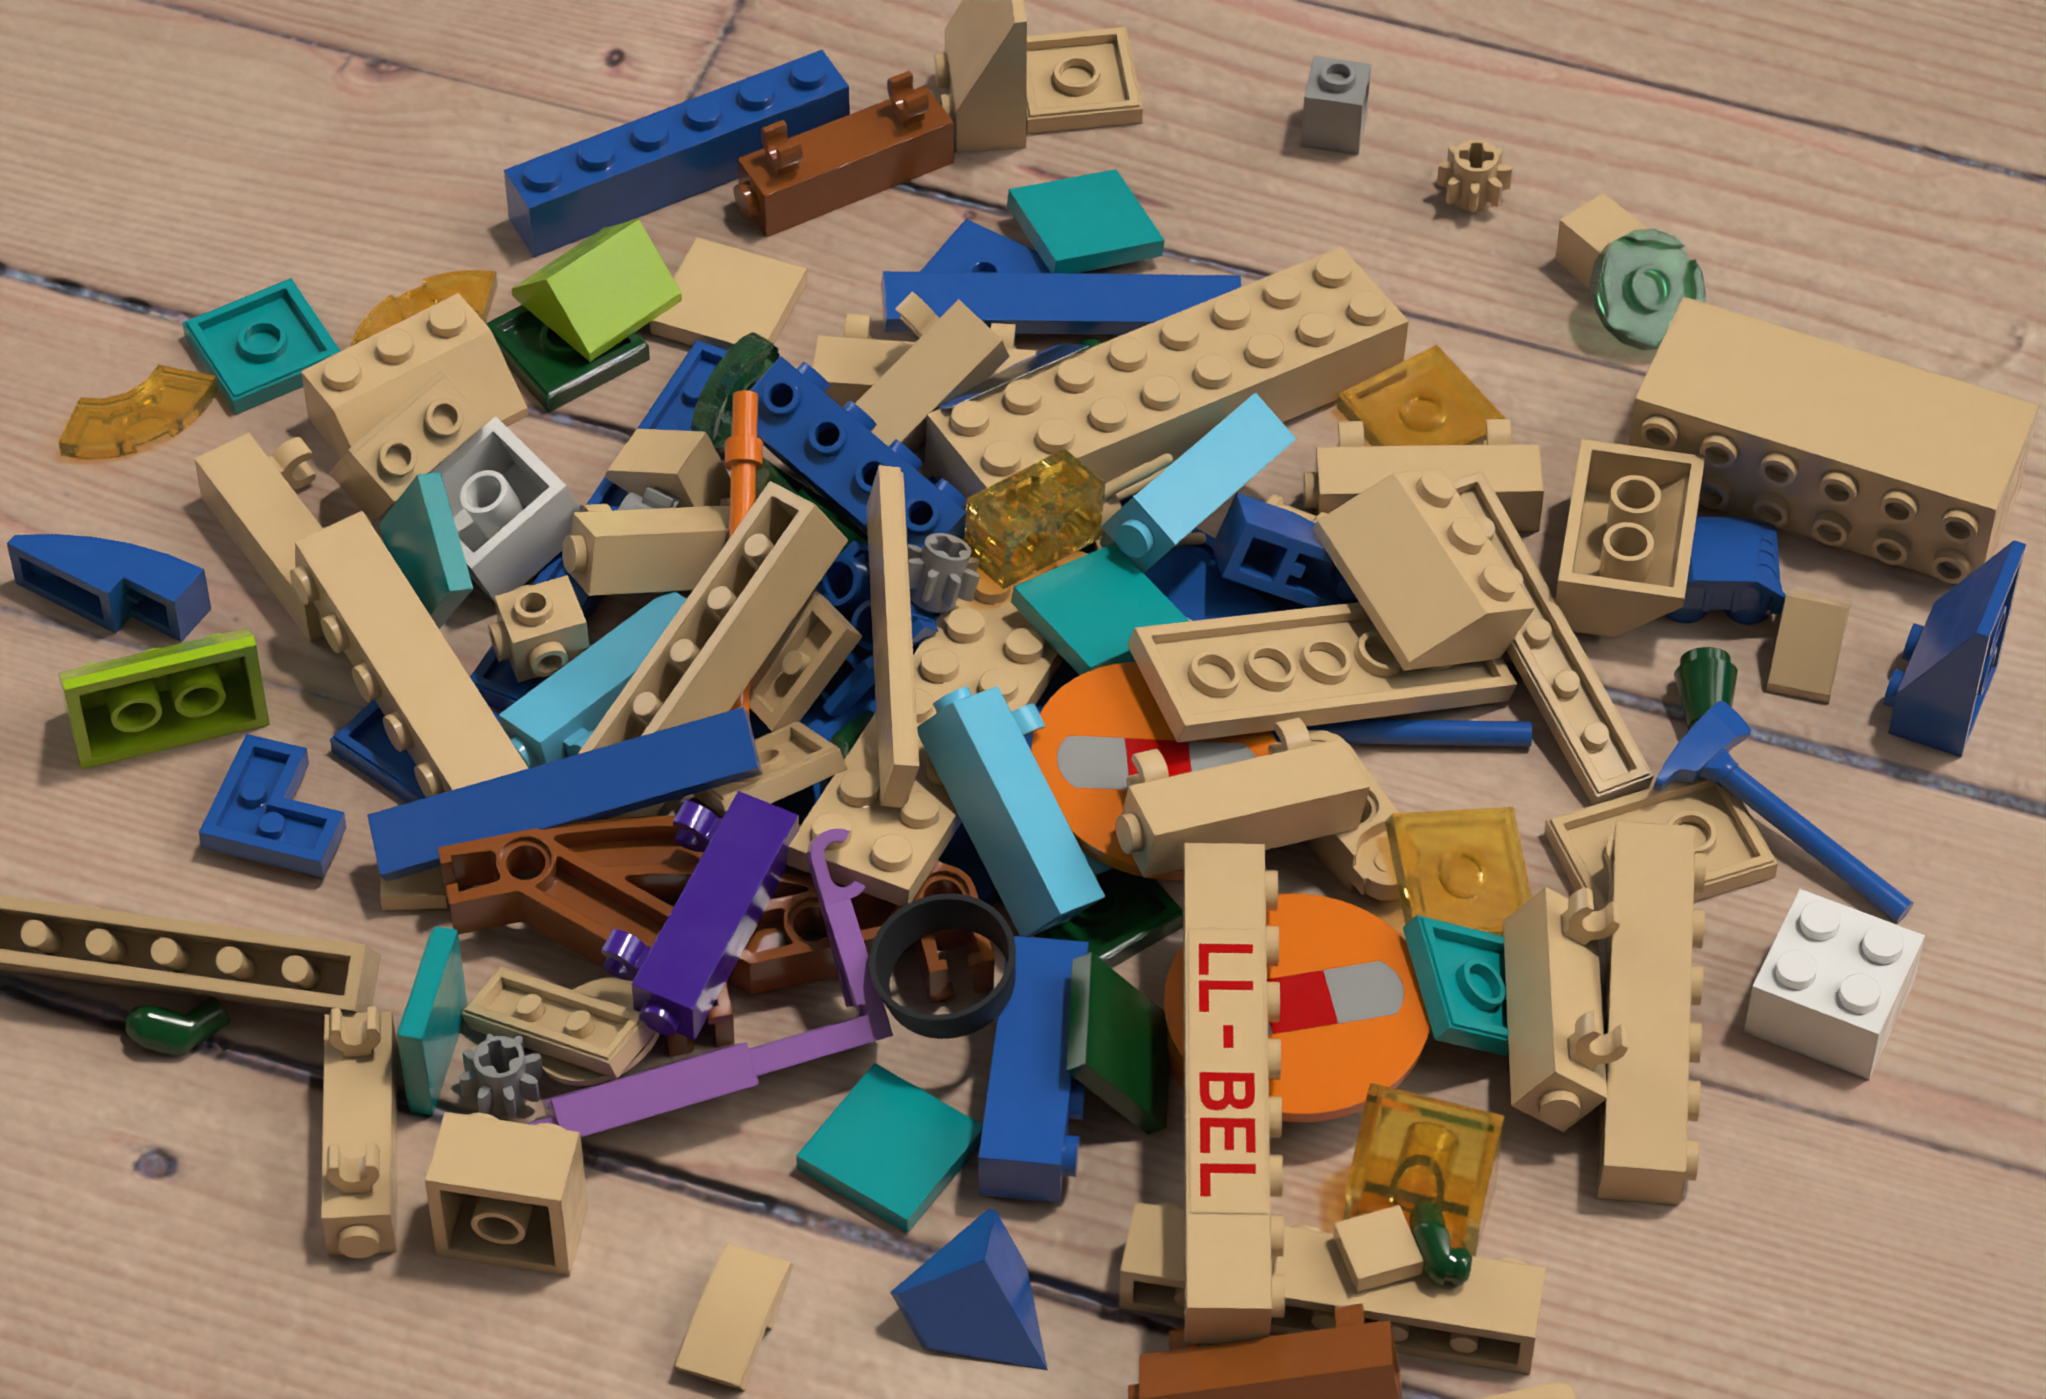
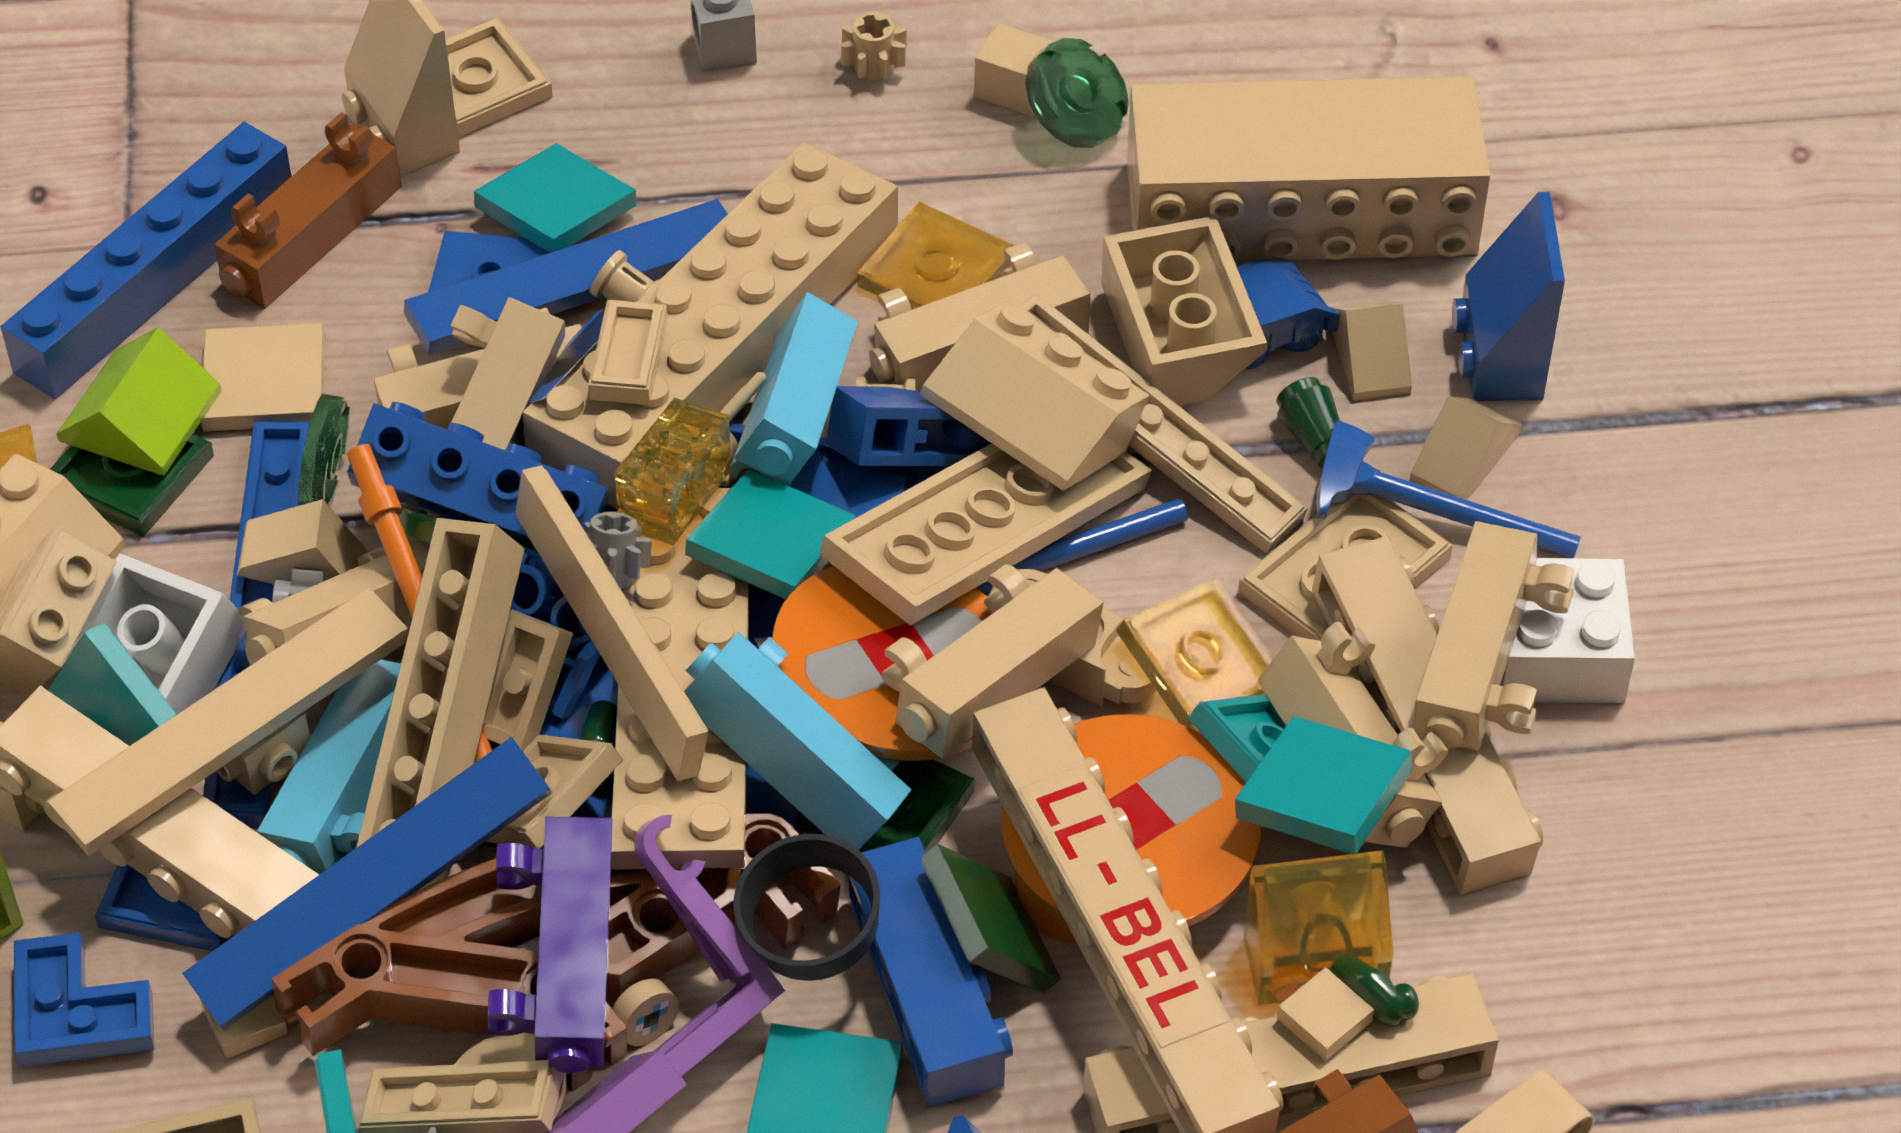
camera: 25 degrees left, 0 degrees up
(511, 602) = (228, 721): none -> tan tile
(765, 1008) = (646, 1011): none -> tan tile
(1050, 391) = (628, 352): none -> tan tile
(1093, 320) = (620, 280): none -> tan bush
(1486, 1034) = (1324, 785): none -> teal tile
(1721, 951) = (1477, 635): none -> tan brick
(1847, 772) = (1463, 446): none -> tan slope

